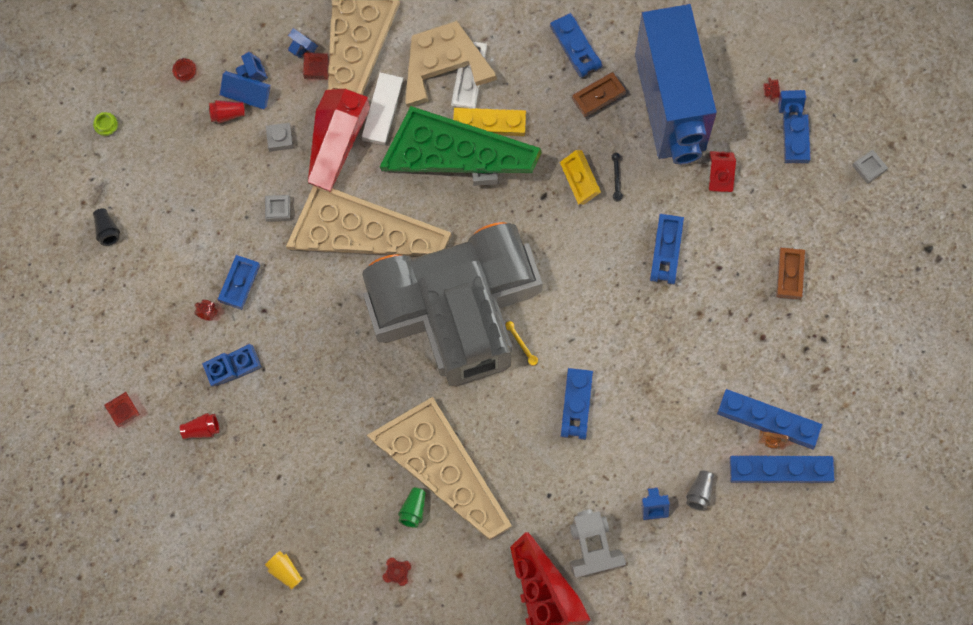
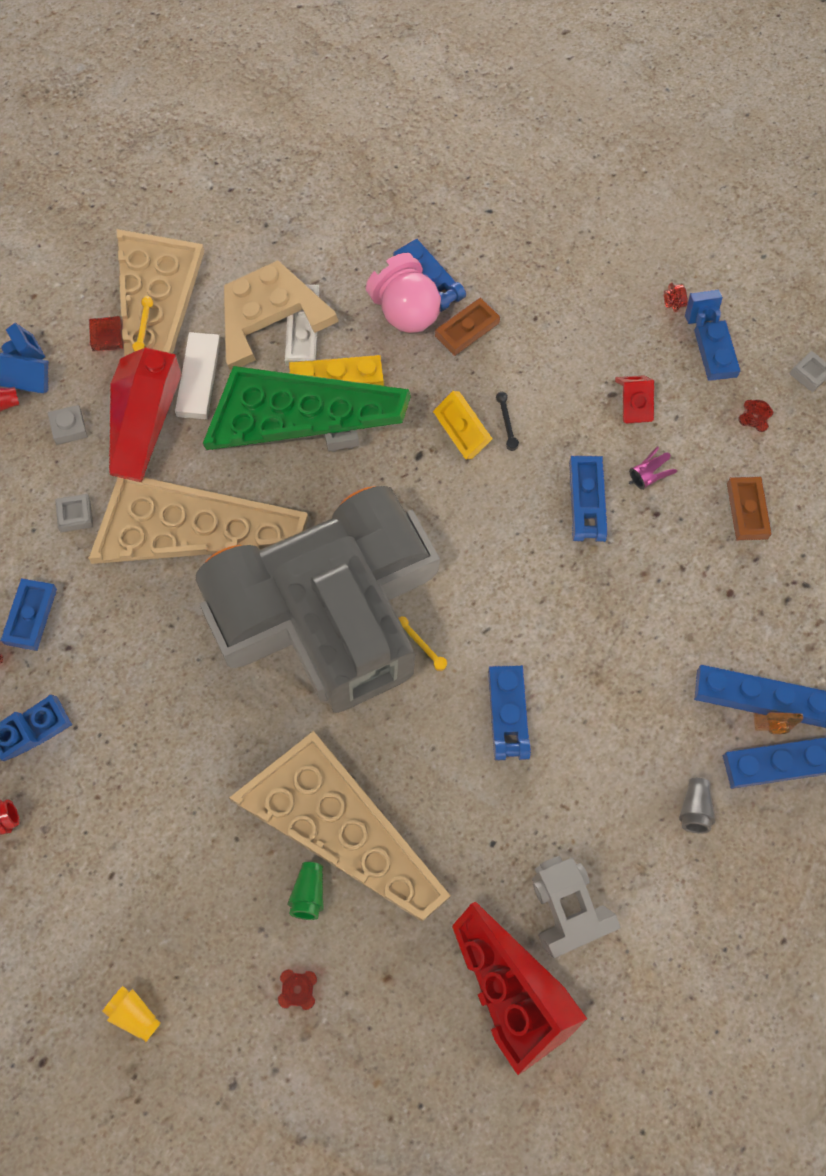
camera: 15 degrees left, 5 degrees down
(300, 44) = (83, 309): blue tile -> none
(340, 82) = (147, 302): none -> yellow hinge
(553, 65) = (405, 294): none -> bright pink tile
(655, 505) = (641, 836): blue tile -> none
(675, 83) = (565, 290): blue brick -> none
(713, 234) = (643, 475): none -> flat silver piece
(815, 191) = (758, 408): none -> clear red plate

